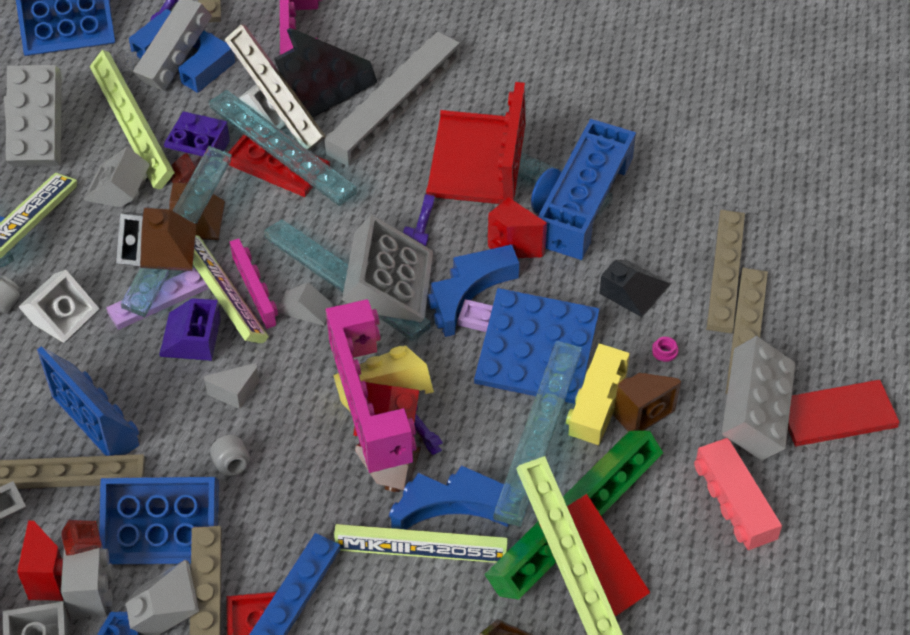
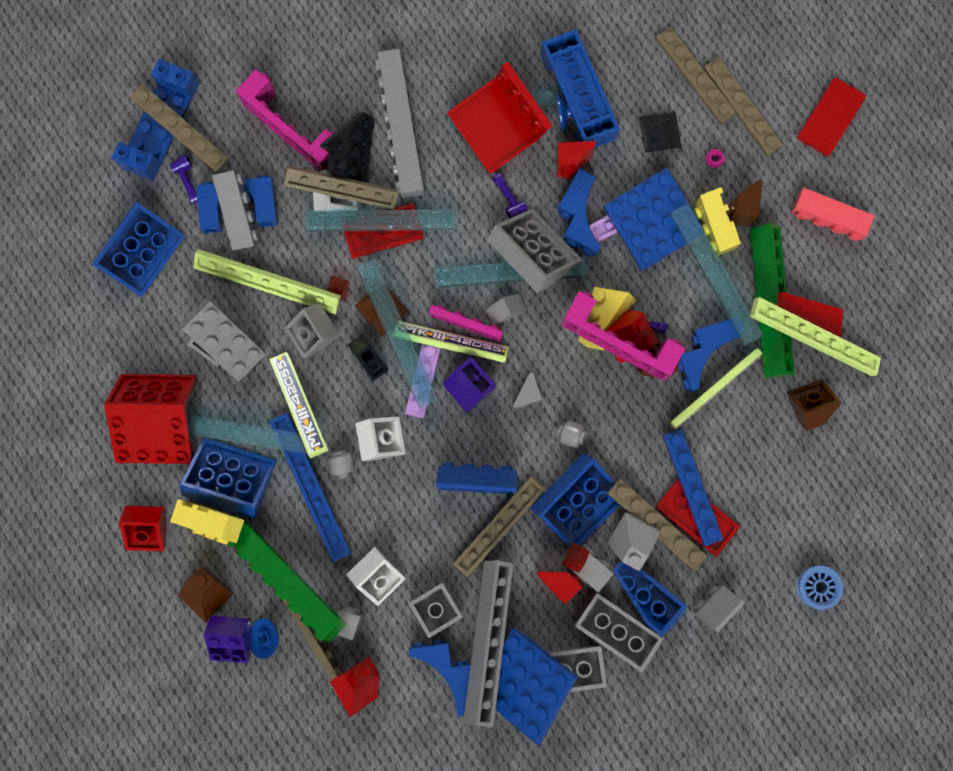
camera: 45 degrees left, 30 degrees up
(167, 240) = (406, 349): reddish brown slope -> none
(196, 132) = (326, 260): dark purple slope -> none
(759, 398) = (797, 148): light grey brick -> none

